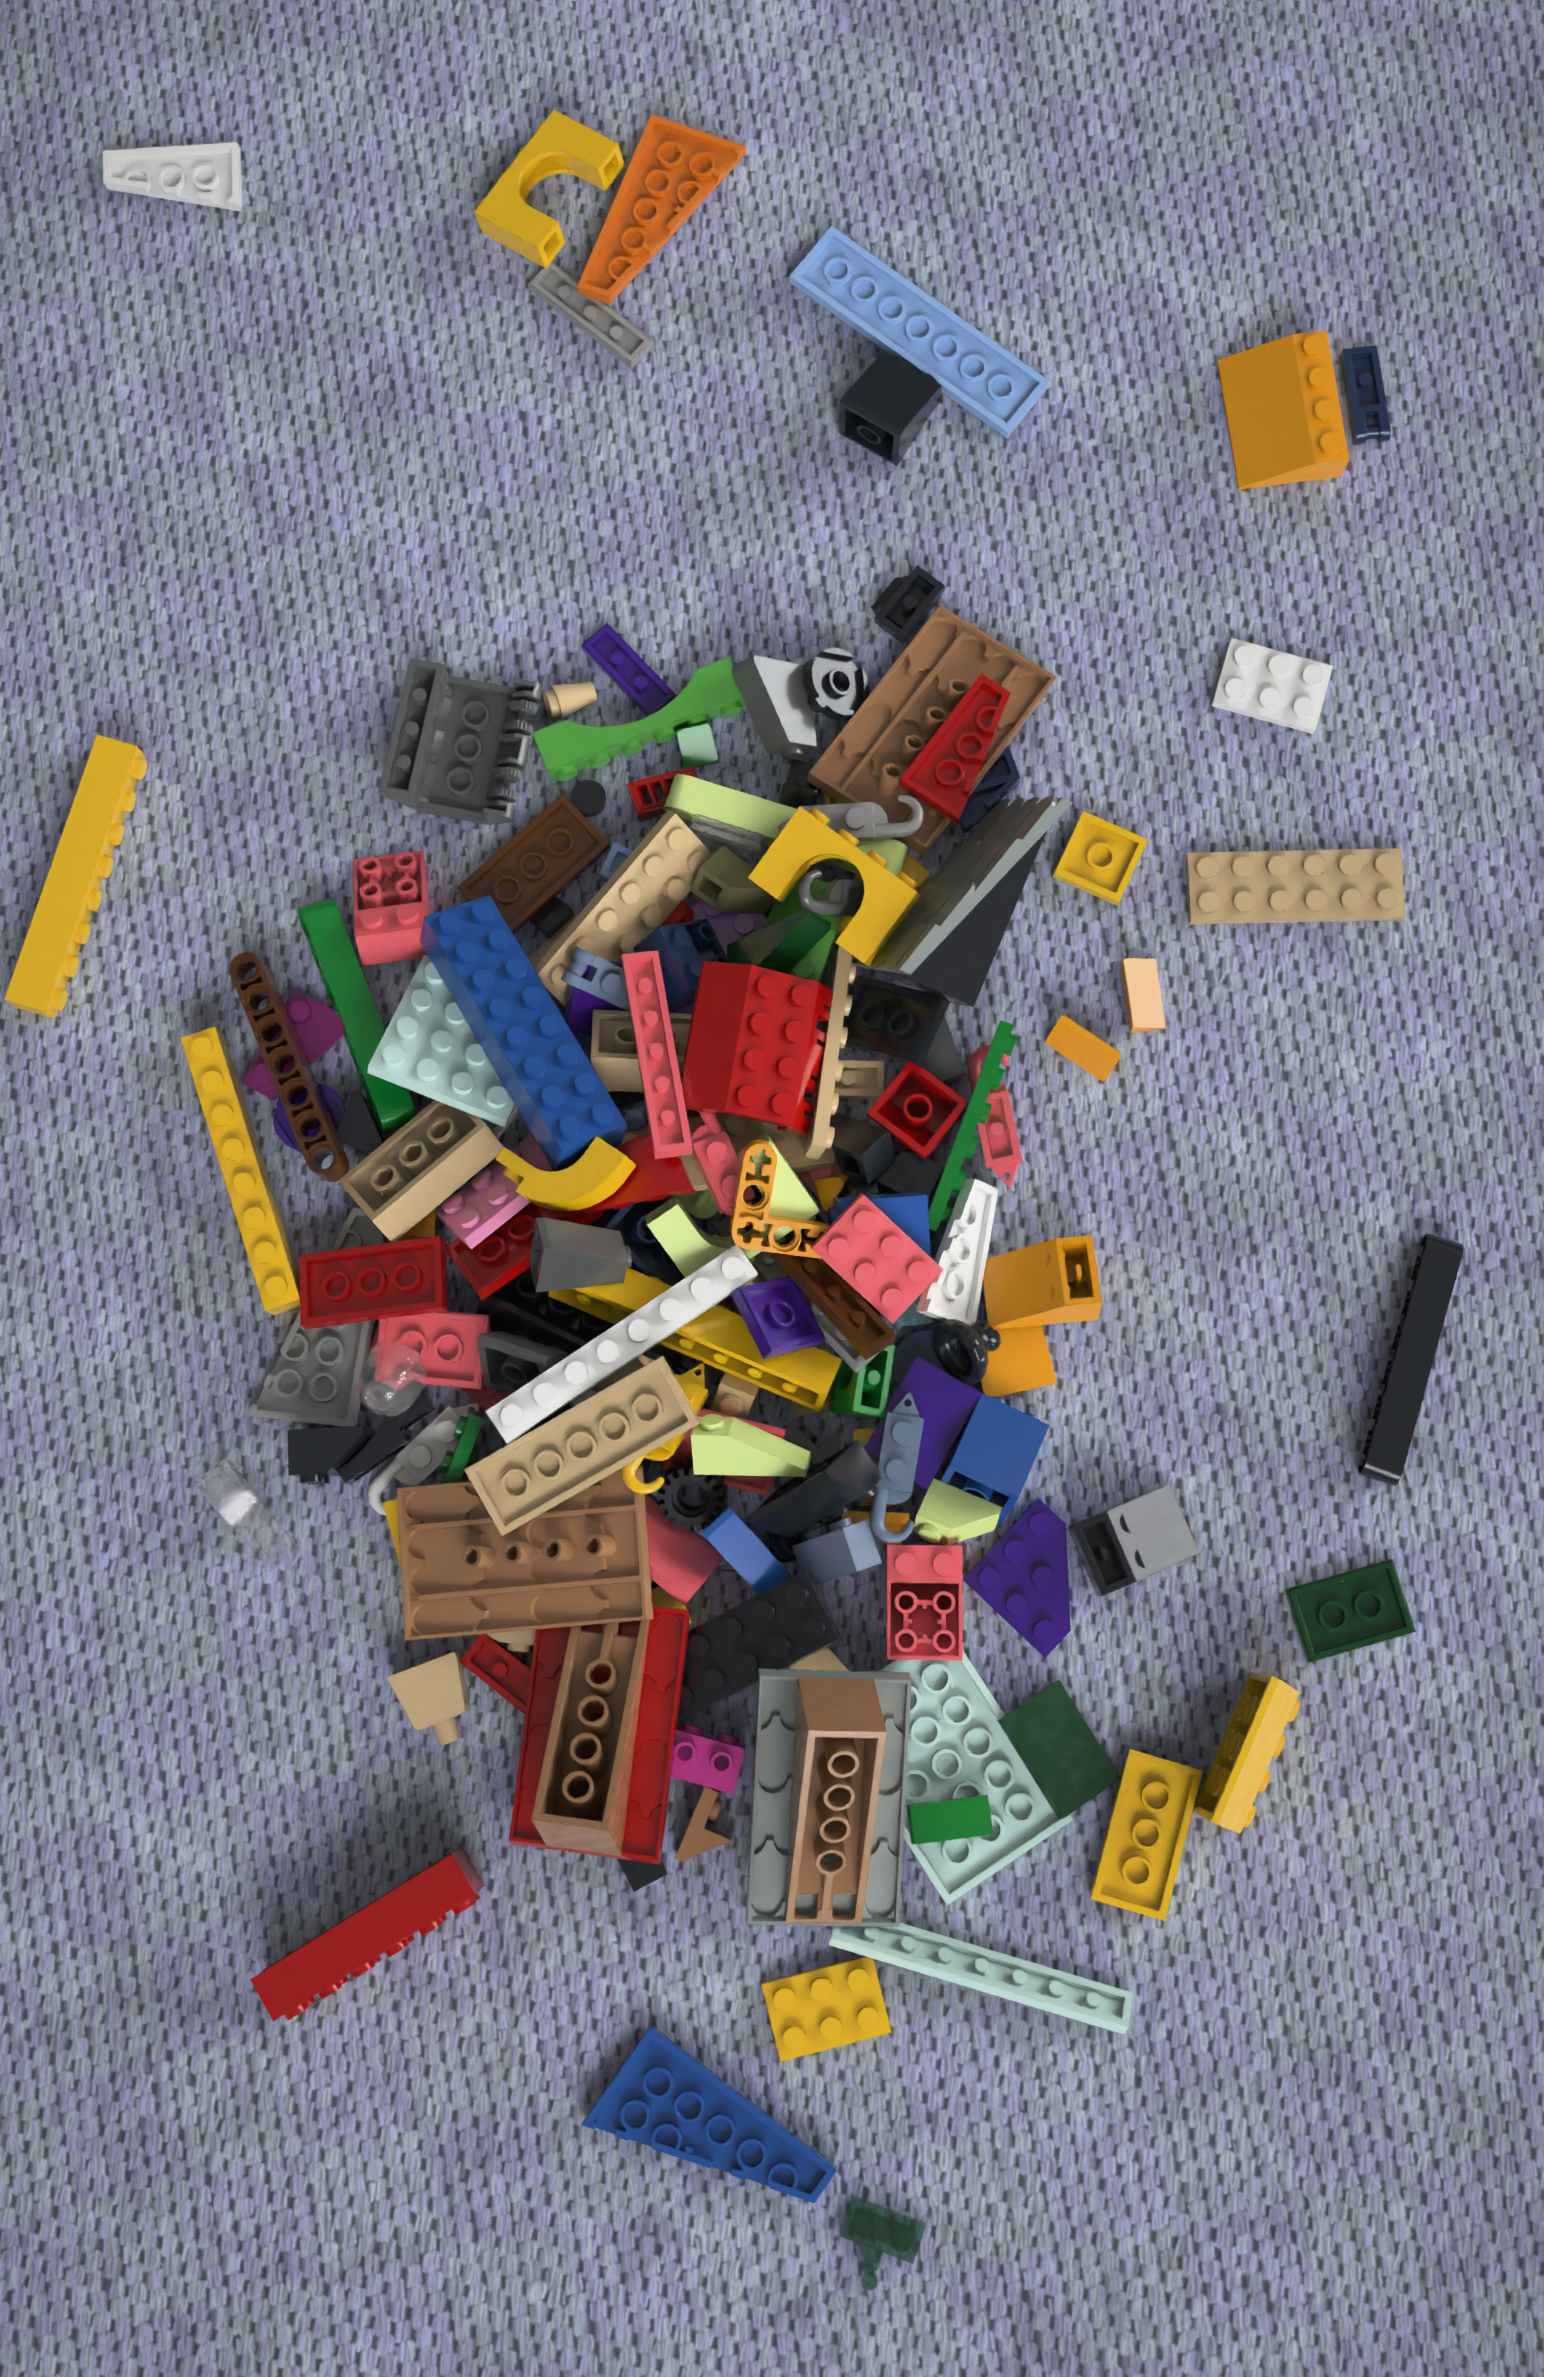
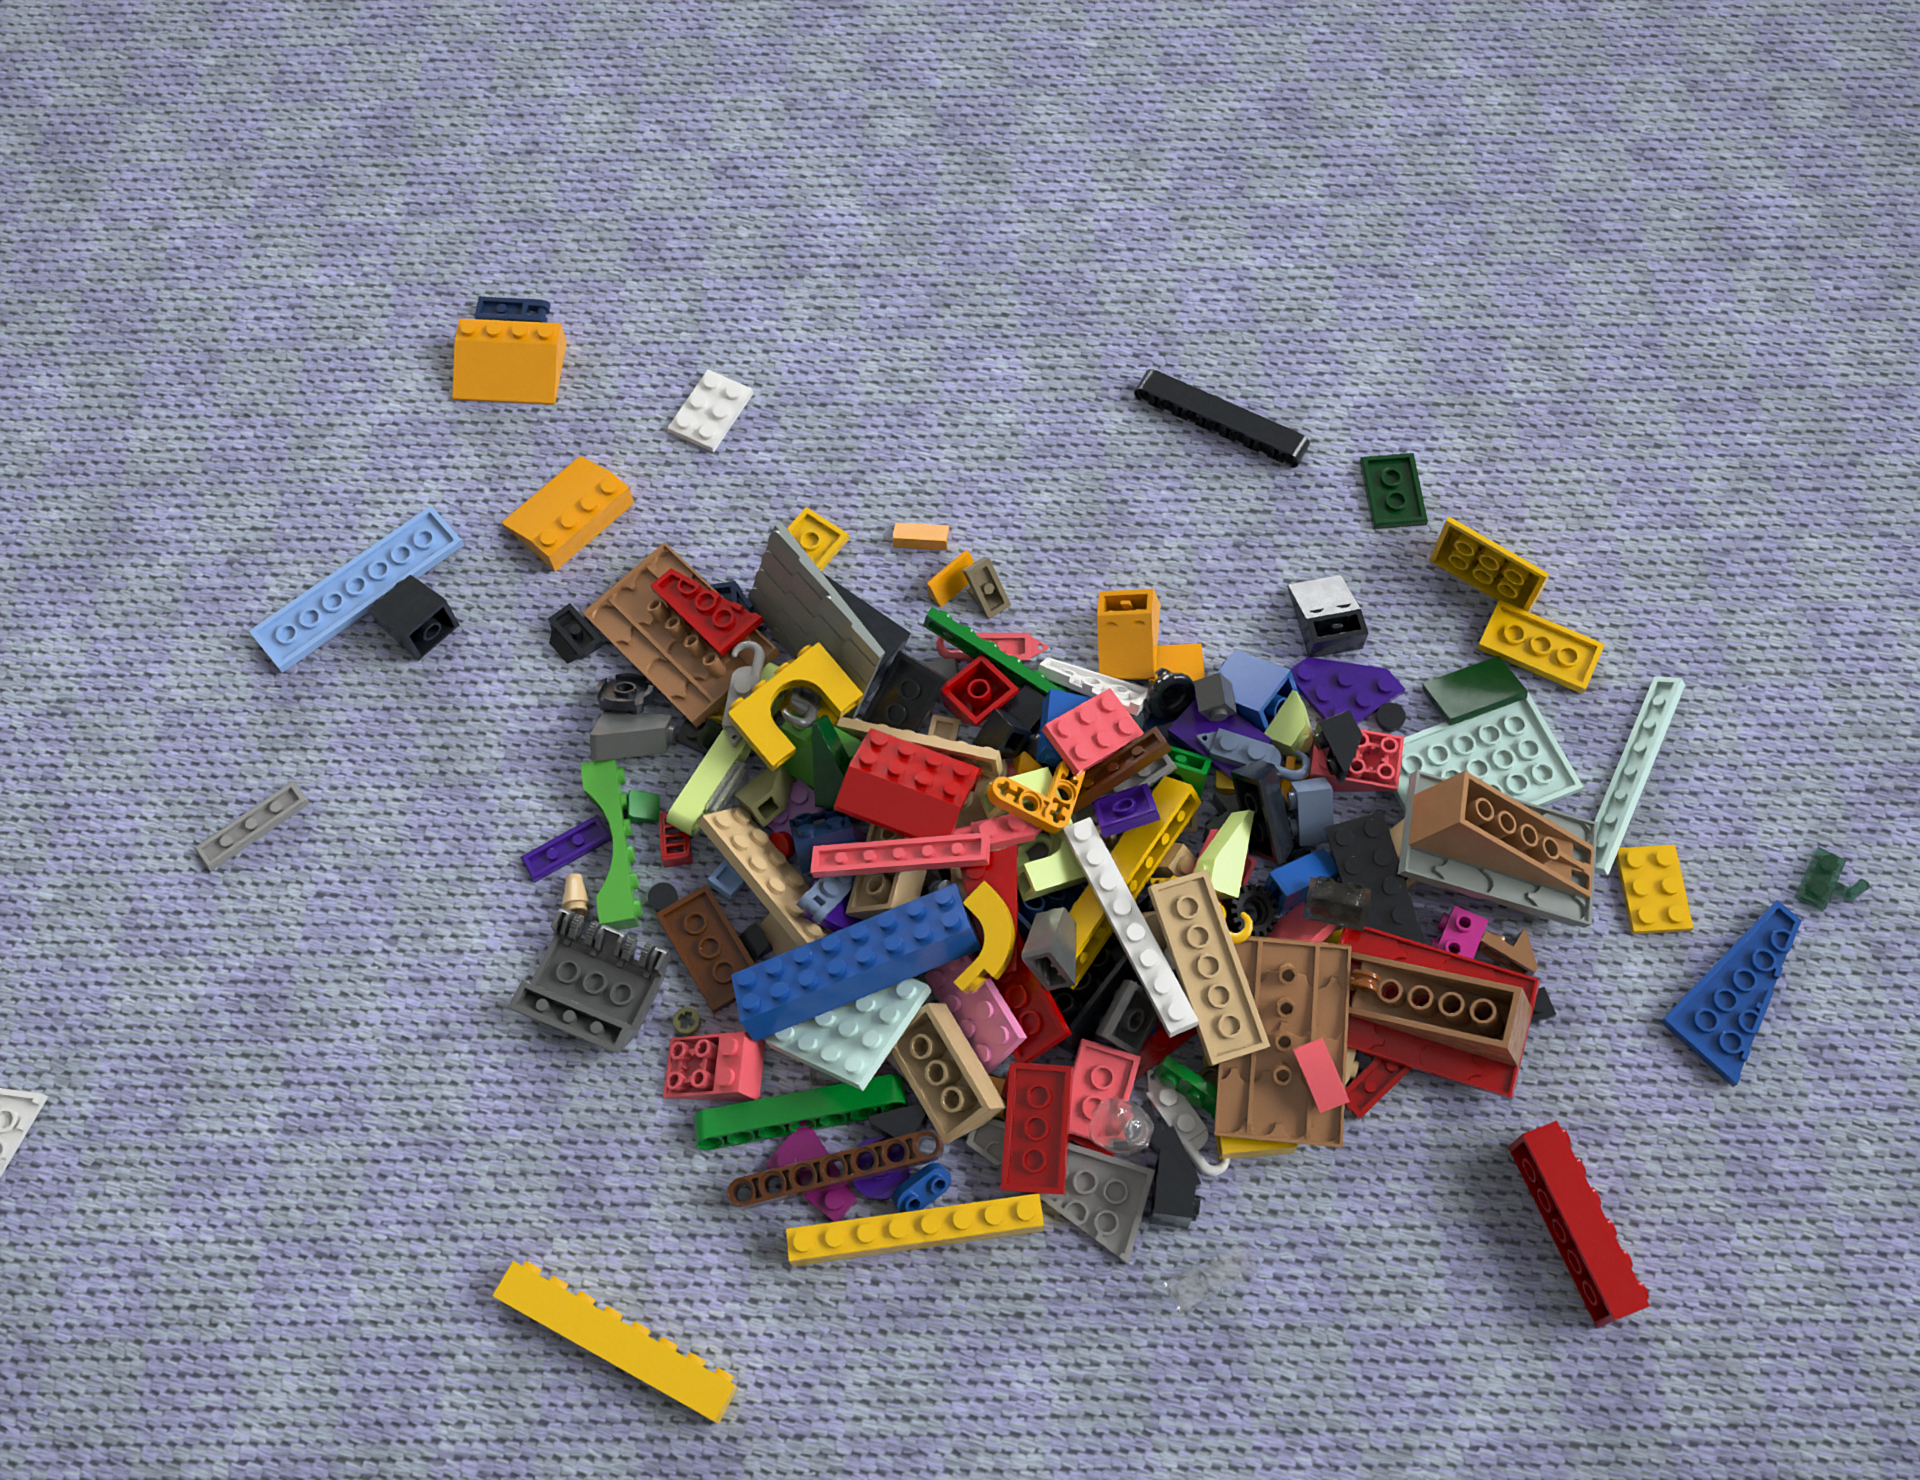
camera: 80 degrees left, 15 degrees down
(291, 1169) = (922, 1188): none -> blue plate
(434, 1695) = (1384, 1143): tan torso -> none
(437, 855) = (695, 1018): none -> olive bush
(477, 1600) = (1321, 1075): none -> coral slope
(556, 148) = (100, 823): yellow arch -> none
(603, 1641) = (1365, 981): none -> dark orange bush
(660, 191) = (169, 751): orange wing -> none
(702, 1595) = (1336, 903): none -> clear smoke brick
(925, 1576) = (1339, 741): none -> black slope
(949, 1819) = (1522, 770): green slope -> none
(961, 1407) = (1215, 697): none -> dark grey brick
(1002, 1643) = (1390, 717): none -> black tile
(1076, 1092) = (986, 587): none -> dark tan slope
(1079, 548) = (569, 511): none -> light orange slope
(1295, 886) = (863, 426): tan plate -> none

